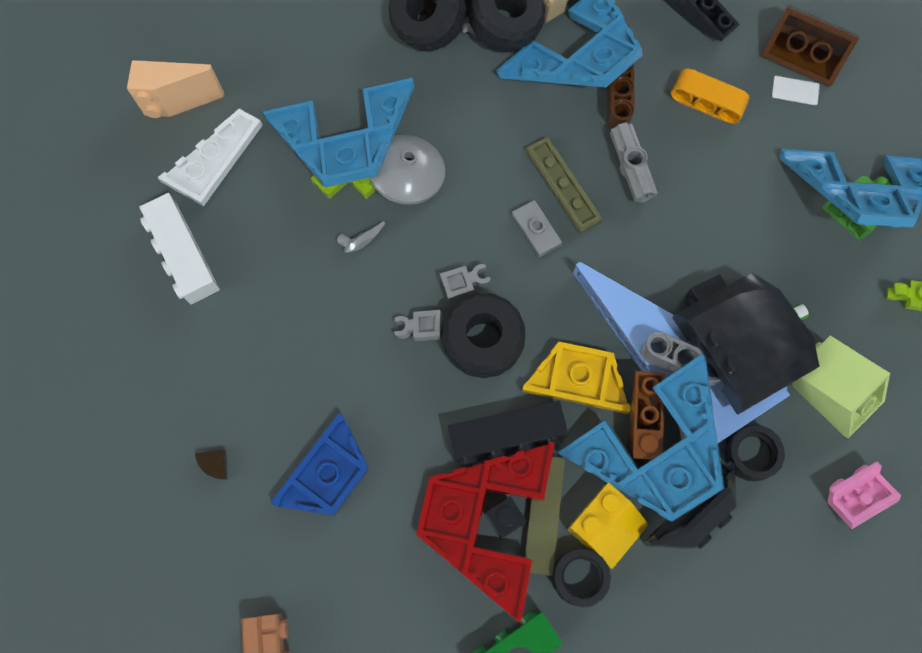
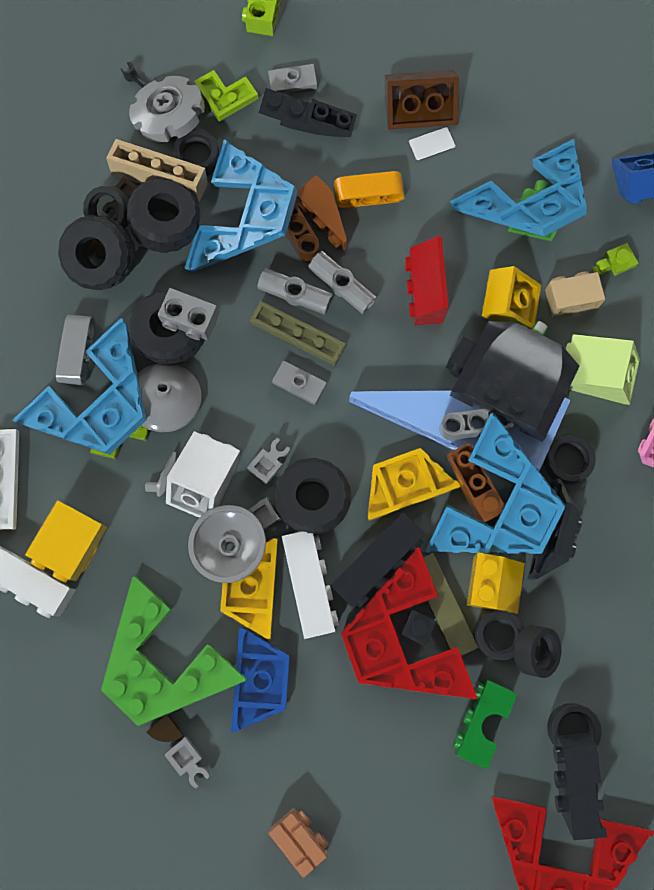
camera: 30 degrees left, 5 degrees up
(213, 500) = (185, 758): none -> light grey plate
(217, 406) = (138, 683): none -> bright green wing
(237, 241) = (66, 542): none -> yellow brick
(347, 90) = (72, 358): none -> light grey beam
(374, 313) = (215, 532): none -> light grey dish
(374, 383) = (253, 597): none -> yellow wing
(393, 256) = (201, 475): none -> white slope
(428, 414) = (308, 584): none -> white brick
(453, 90) = (160, 350): none -> black tyre
(478, 101) = (191, 309): none -> light grey brick
(594, 156) = (280, 285): none -> light grey piece
(620, 627) = (525, 651): none -> black tyre
(654, 81) = (320, 205): none -> dark orange slope
(714, 206) = (427, 282): none -> red slope
(790, 266) = (511, 297): none -> yellow slope
(855, 300) = (574, 293): none -> tan brick

